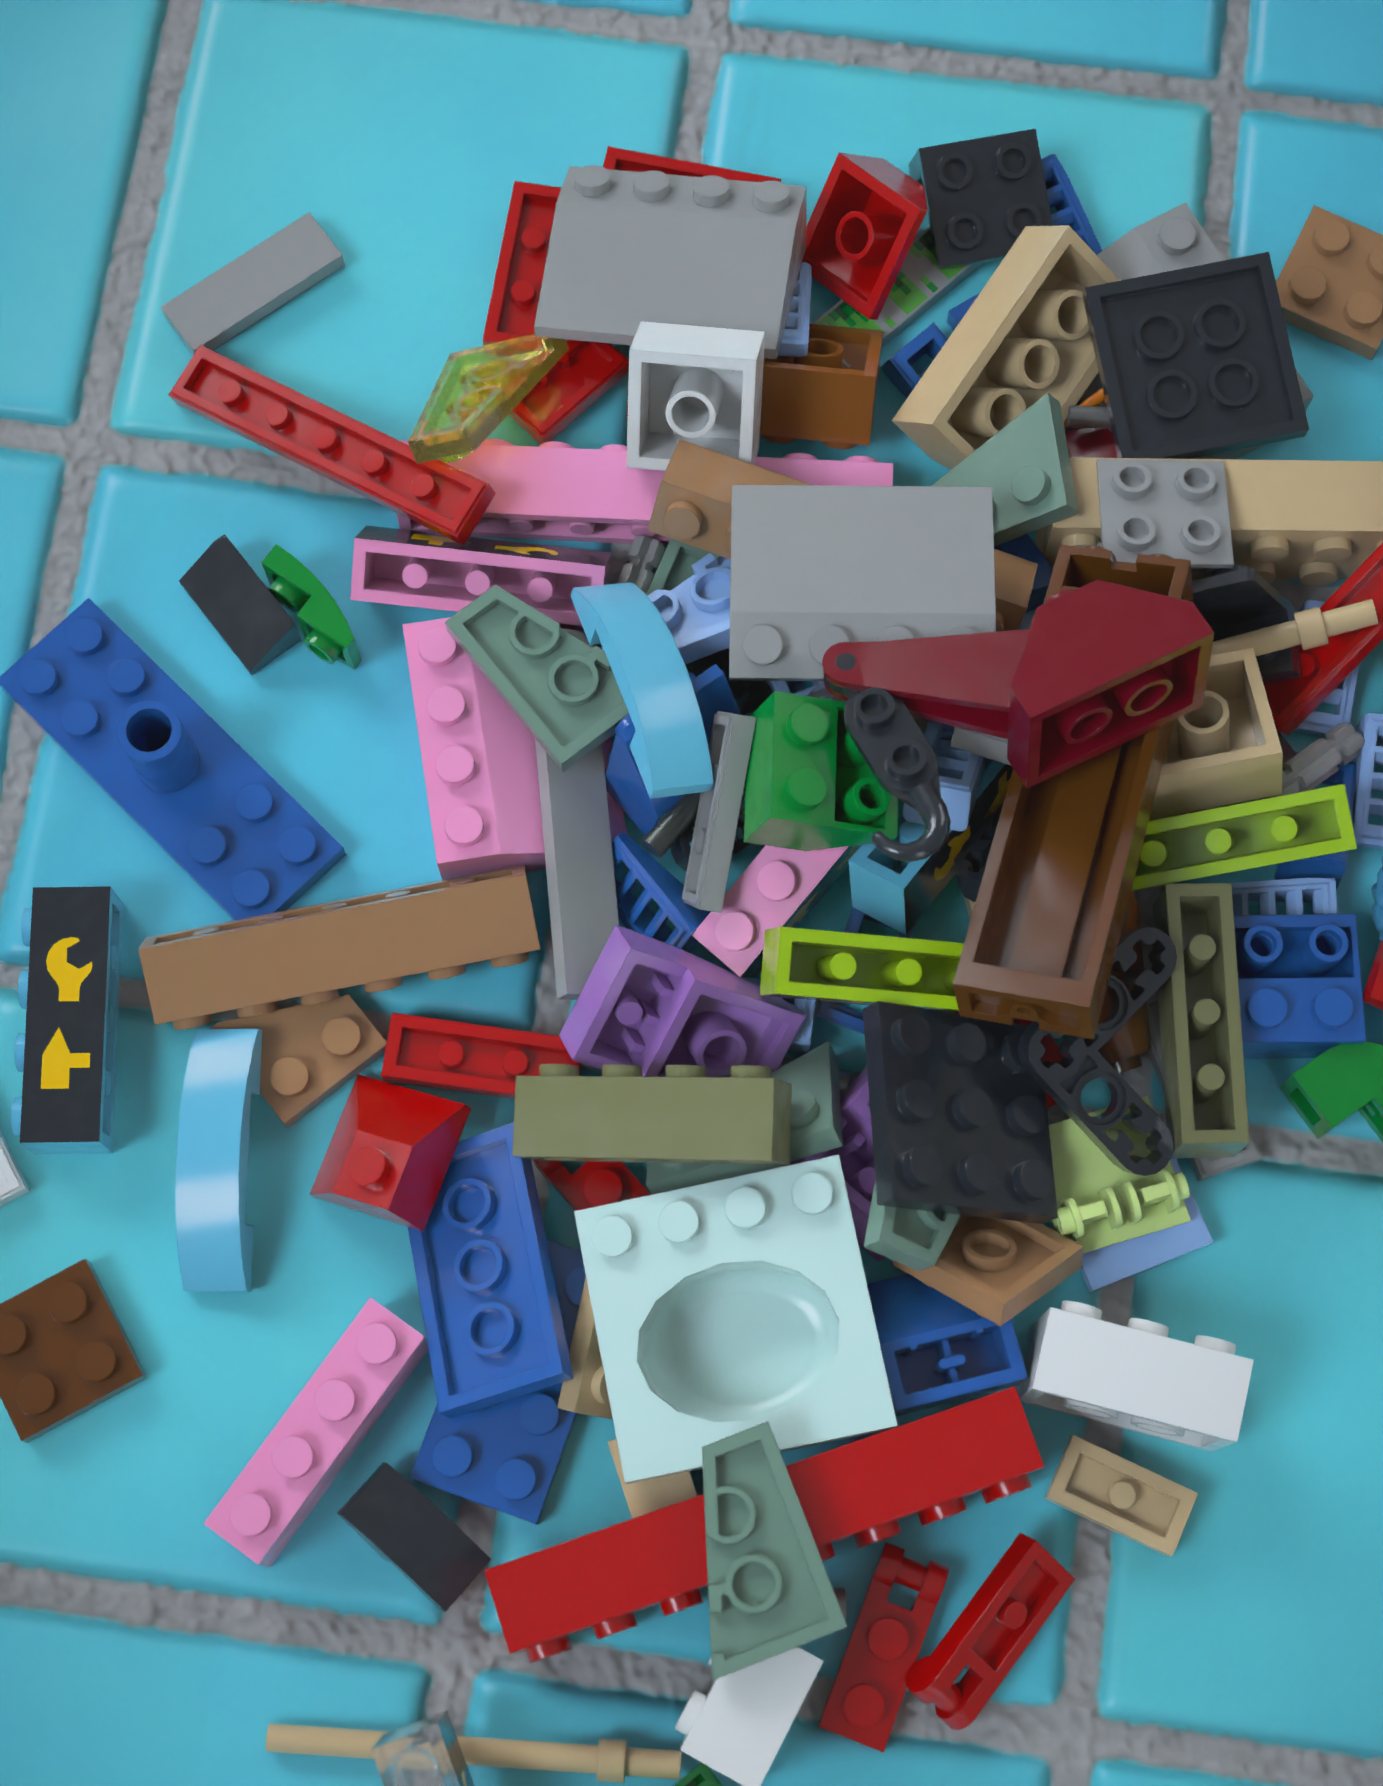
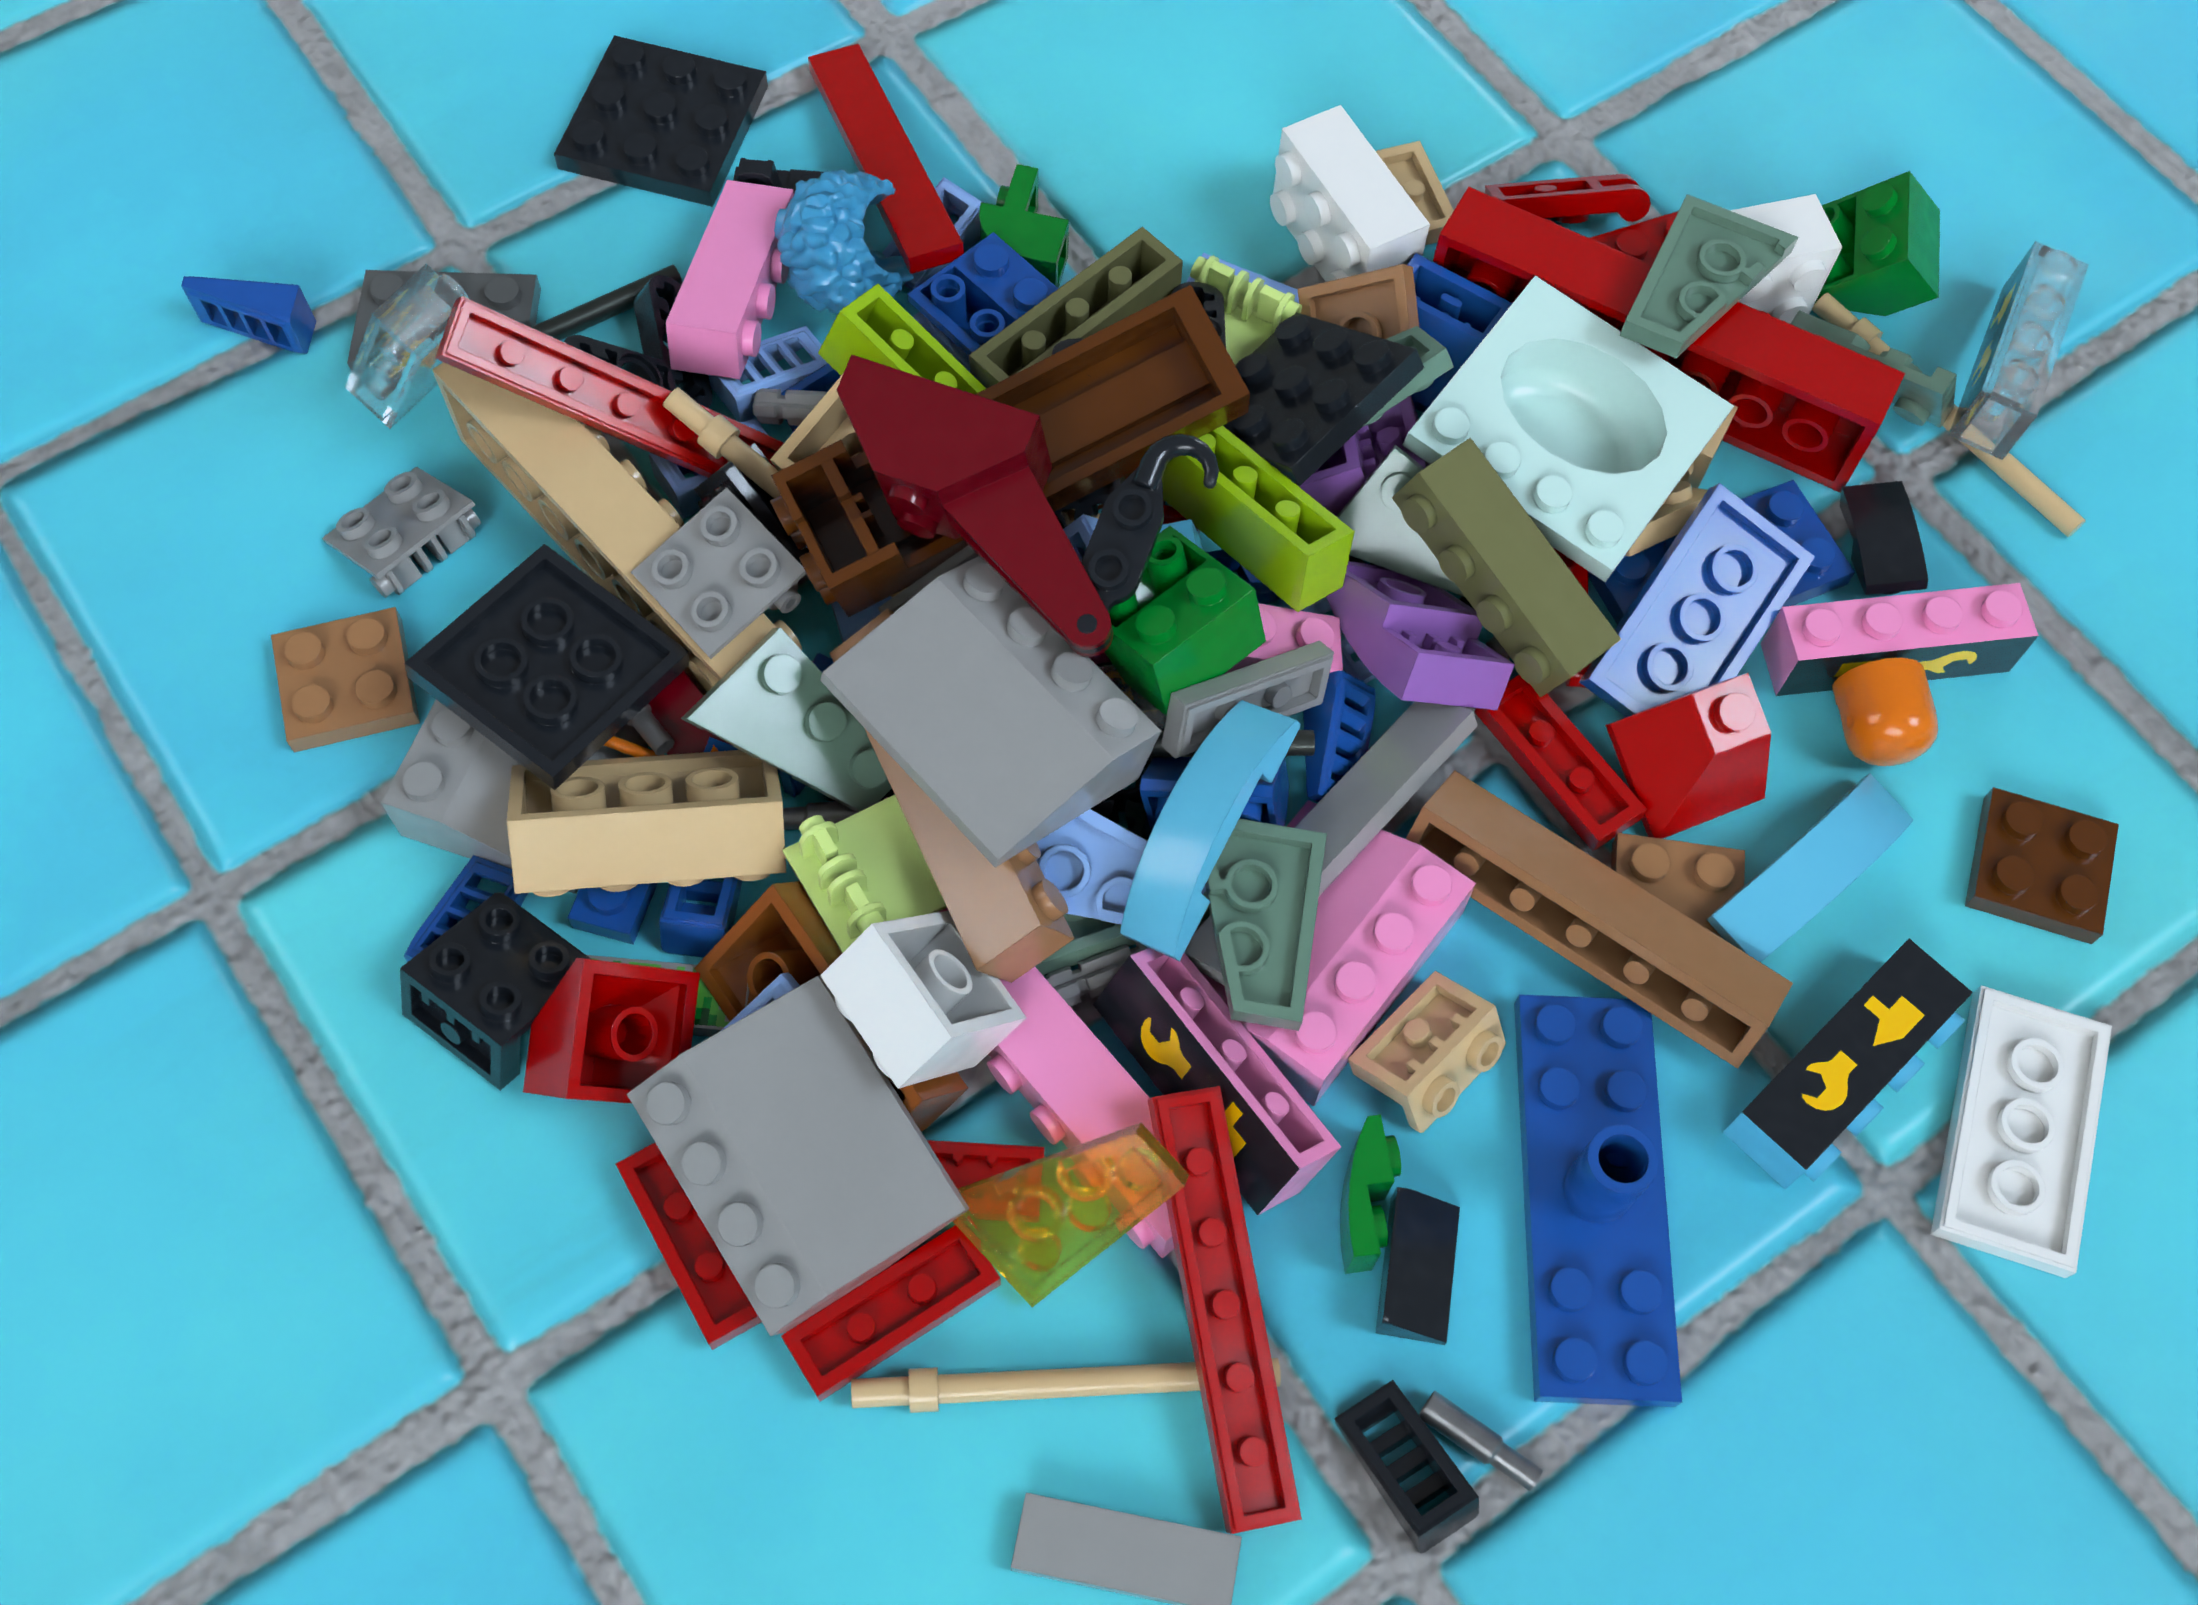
camera: 135 degrees left, 10 degrees down
(106, 543) = (1478, 1440): none -> flat silver pin
(118, 460) = (1444, 1518): none -> black slope
(266, 1340) = (1886, 711): none -> orange helmet
(365, 746) = (1431, 1049): none -> tan bracket
(459, 255) = (926, 1389): none -> tan bar
(554, 1699) = (1918, 396): none -> sand green wing
(834, 443) = (863, 870): none -> yellowish green hinge

